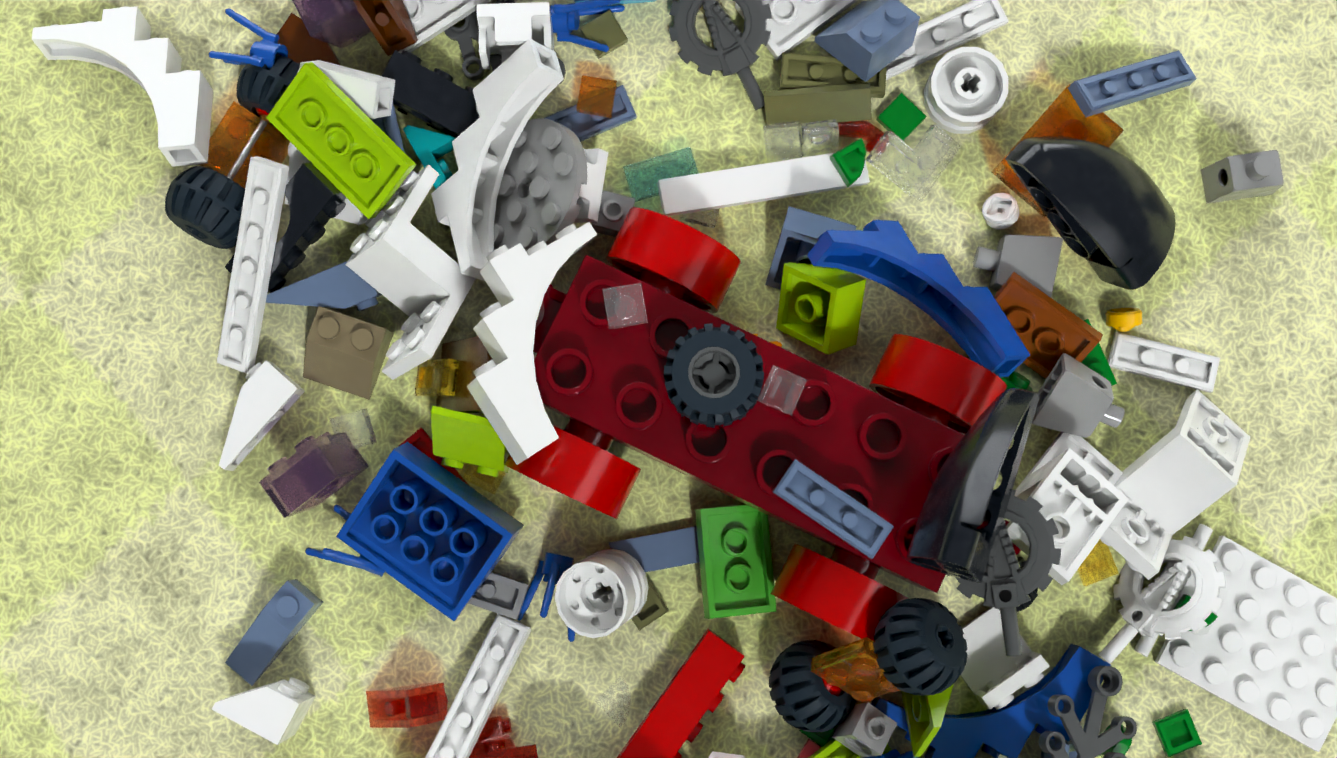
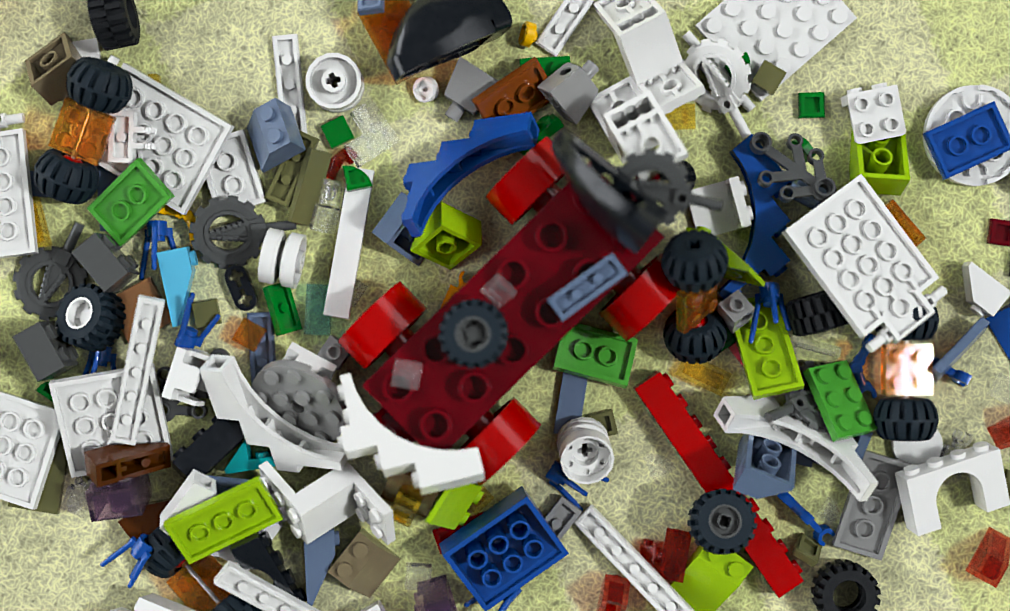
camera: 65 degrees left, 5 degrees up
(646, 127) = (282, 309): none -> green plate
(648, 59) = (235, 290): none -> black beam
(712, 101) = (282, 258): none -> white wheel
(759, 720) = (705, 375): none -> clear yellow tile
(1194, 660) = (768, 77): none -> olive tile

